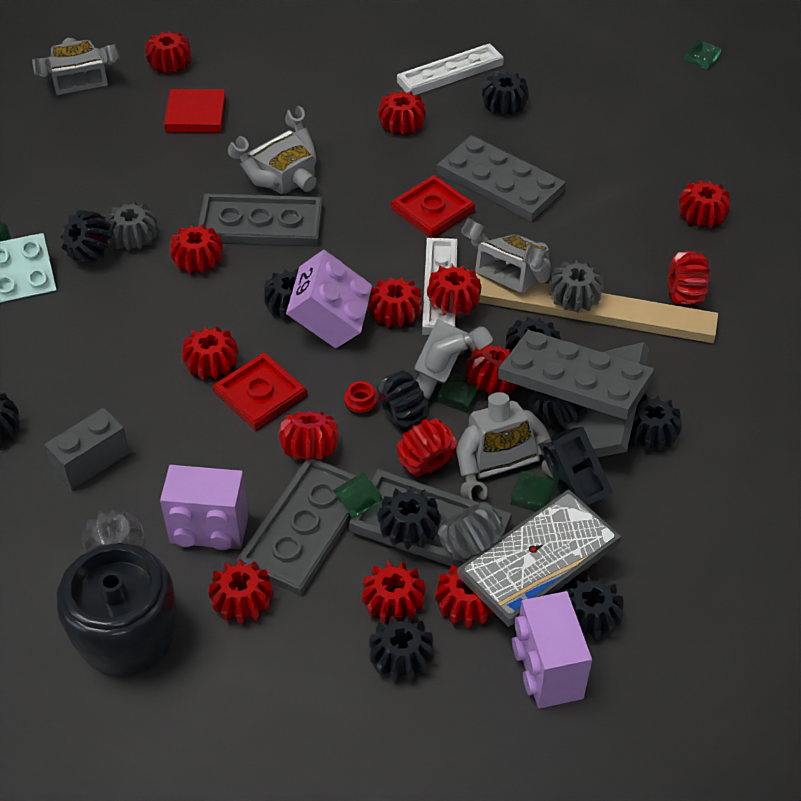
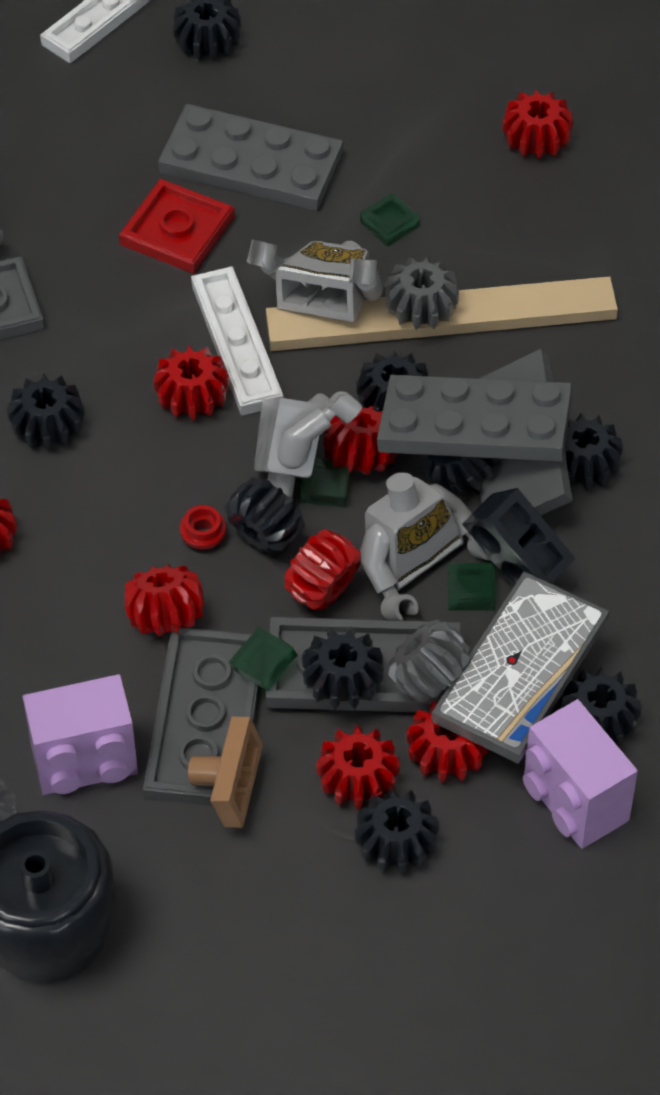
camera: 20 degrees left, 5 degrees up
(240, 591) = (170, 842): red gear -> none
(259, 391) = (64, 558): red tile -> none
(298, 567) = (231, 773): none -> medium nougat tile
(329, 299) = (110, 406): lavender brick -> none
(401, 112) = (75, 95): red gear -> none
(454, 290) = (266, 344): red gear -> none
(578, 238) = (389, 219): none -> clear green tile
(688, 278) = (558, 240): red gear -> none

